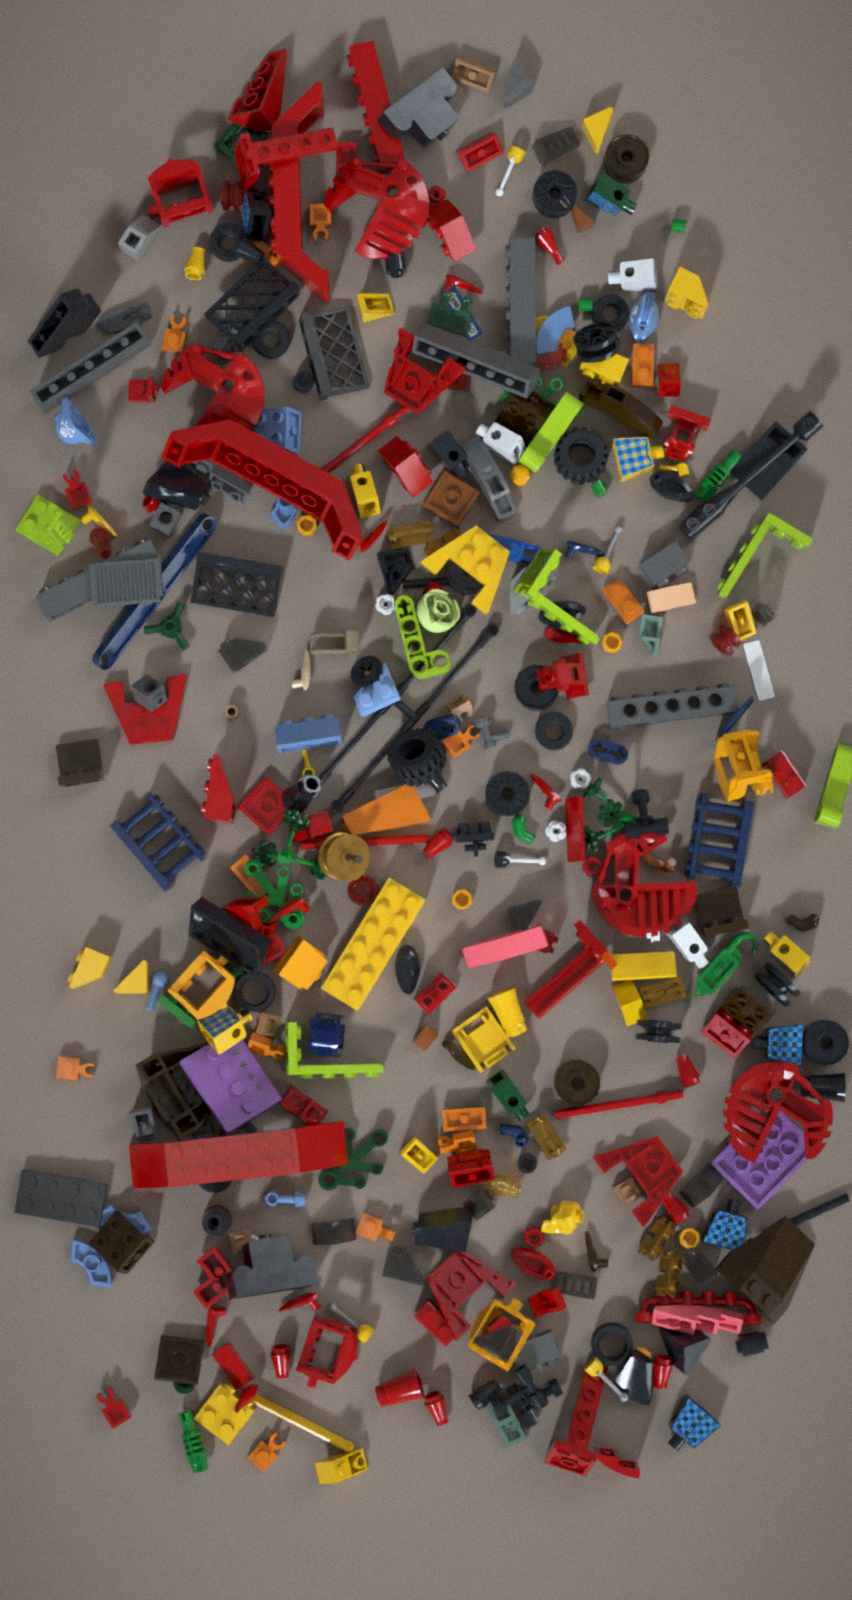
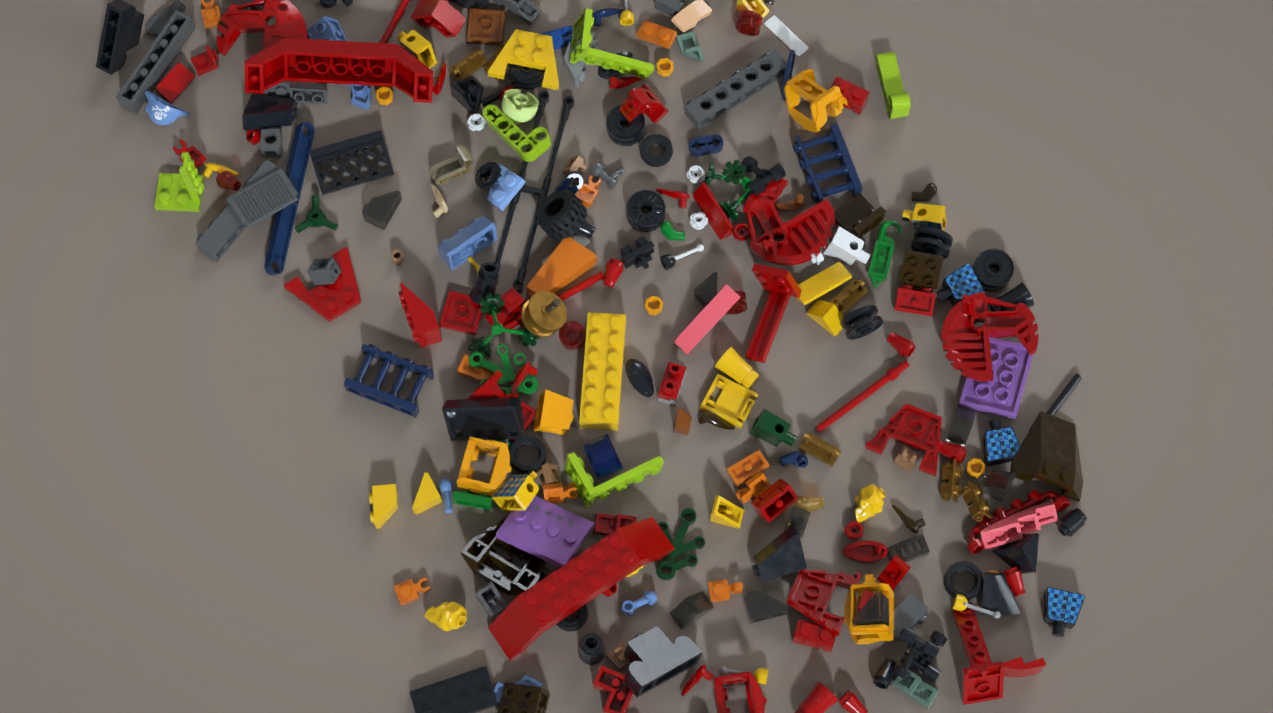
camera: 30 degrees left, 15 degrees down
(79, 763) = (295, 353): dark brown bracket -> none
(95, 1115) = (447, 615): none -> yellow head
(100, 399) = (174, 83): none -> red slope
(523, 1169) = (816, 483): black bush -> none
(589, 1077) = (820, 384): dark brown wheel -> none

